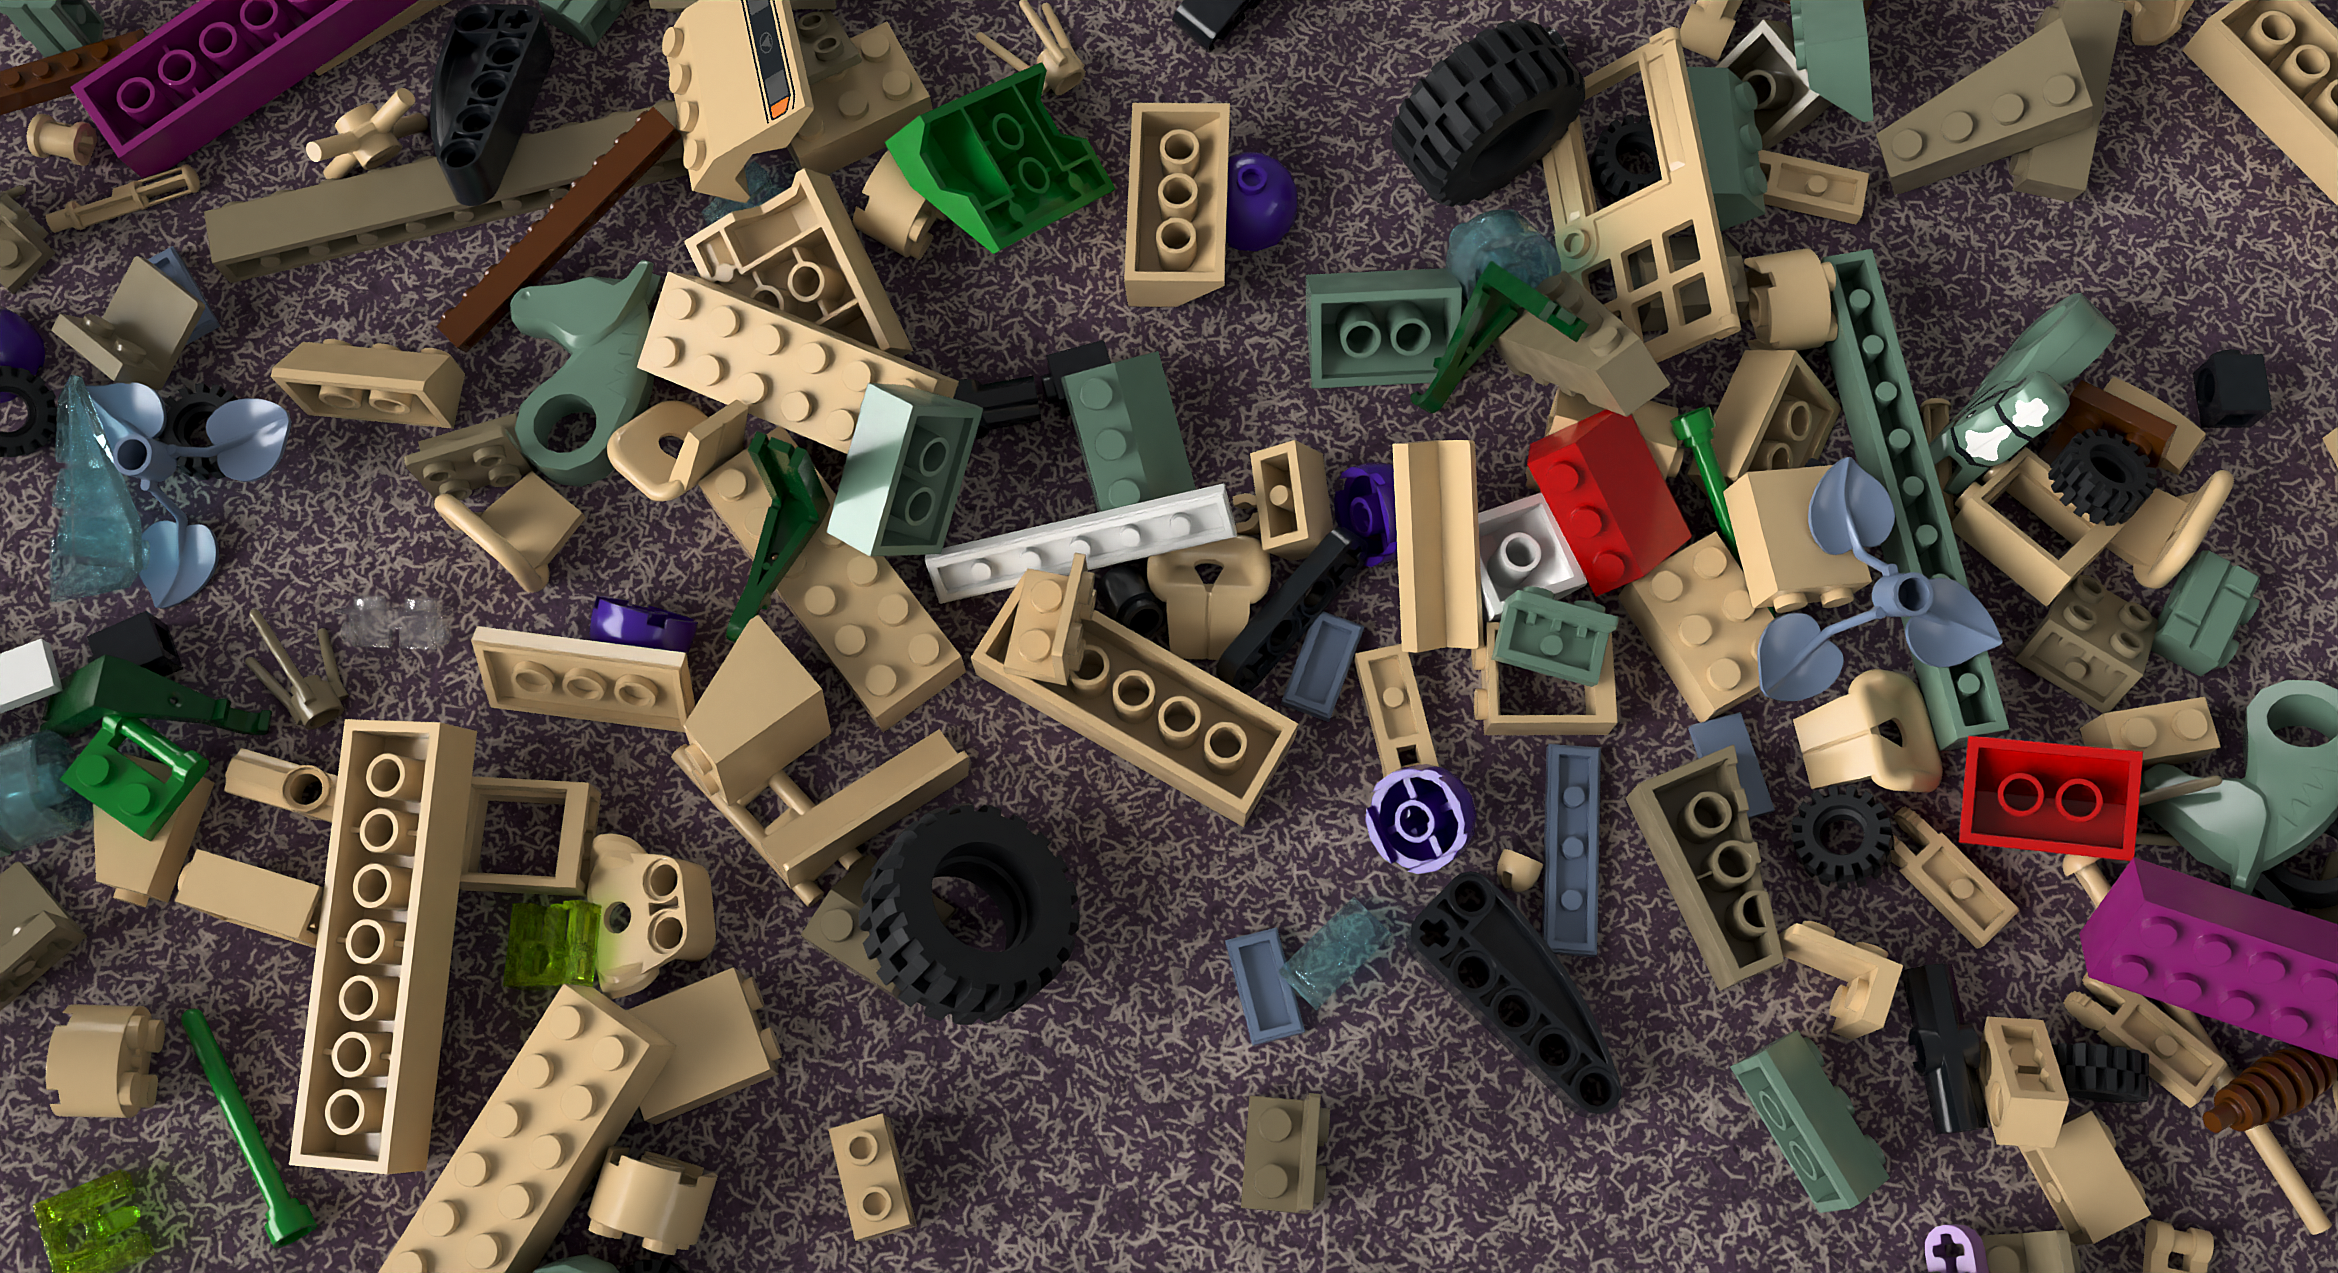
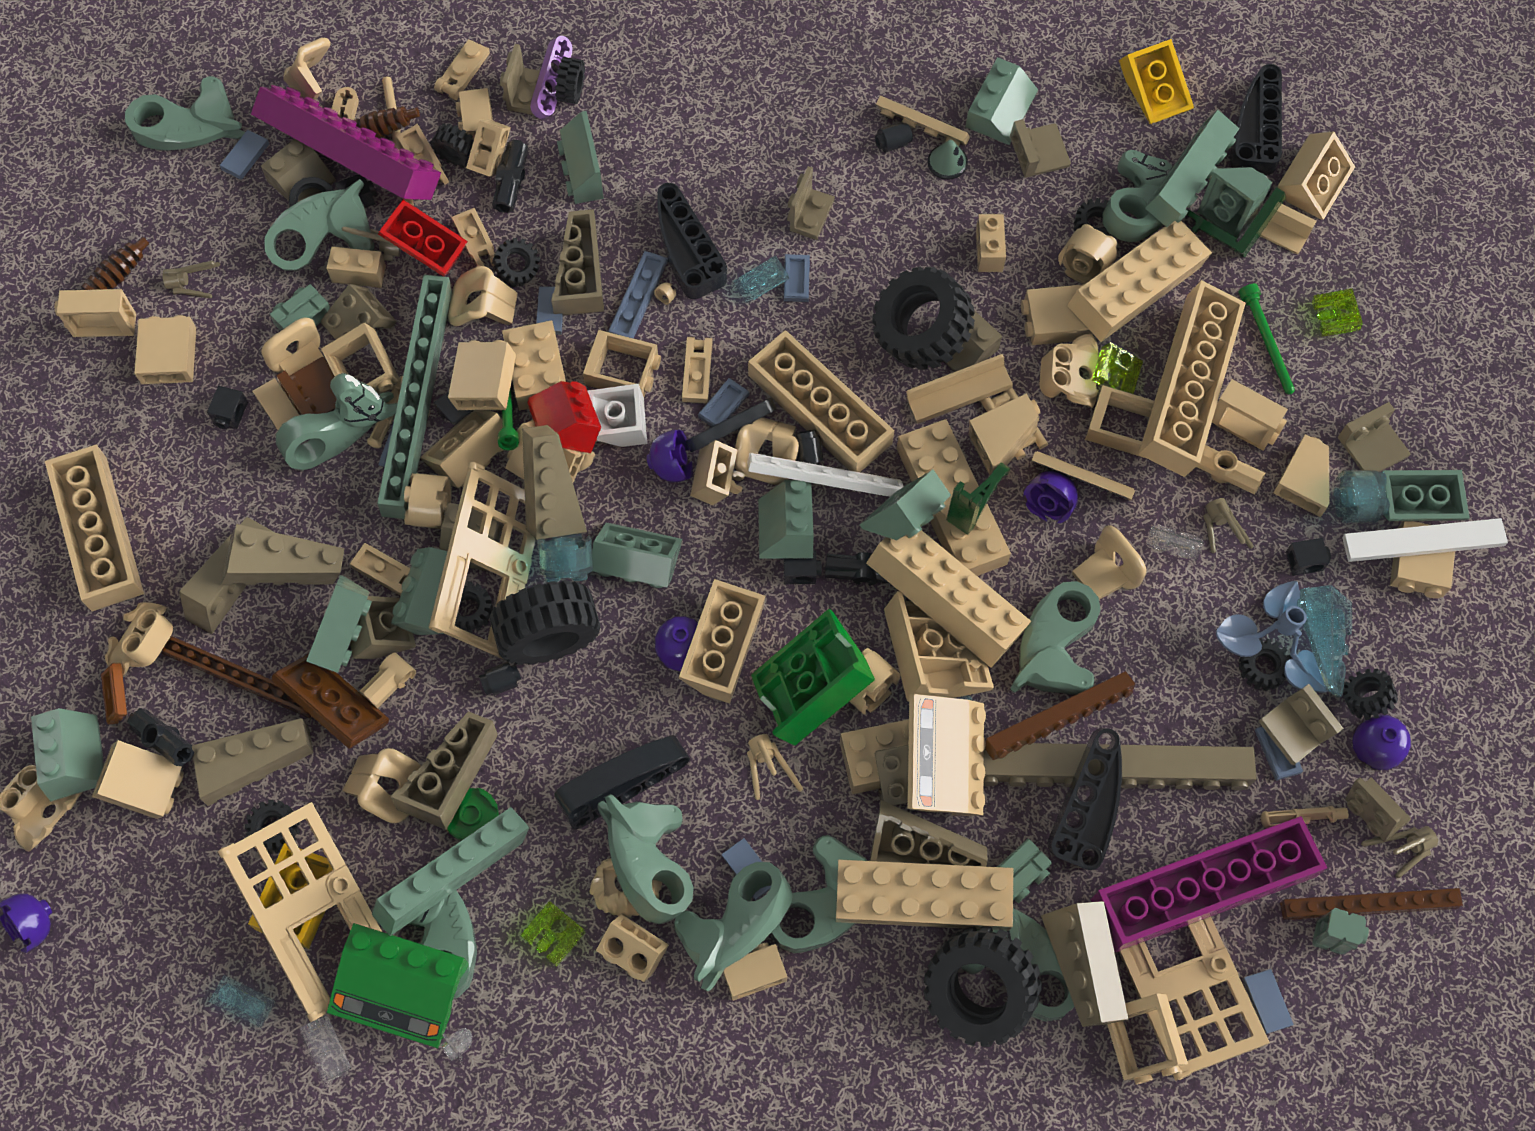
camera: 165 degrees left, 5 degrees down
(61, 139) = (1338, 860): tan bush -> none
(104, 1061) = (1327, 370): tan brick -> none
(125, 787) = (1312, 481): green plate -> none
(133, 691) = (1309, 513): dark green hinge -> none
(368, 135) = (1159, 796): tan bar -> none
(372, 383) = (1173, 659): tan slope -> none
(470, 459) = (1126, 608): dark tan bracket -> none
(706, 446) = (1028, 563): tan piece -> none
(1048, 623) = (851, 425): tan bracket -> none
(1421, 818) = (702, 315): dark purple cylinder -> none
(1438, 545) = (652, 422): tan panel -> none
(1488, 314) = (568, 510): dark green hinge -> none
(1554, 635) = (615, 364): sand green bracket -> none
(1870, 976) = (539, 207): tan bracket -> none
(1946, 619) = (459, 368): sand blue plant -> none
(2102, 477) = (310, 362): black tyre -> none

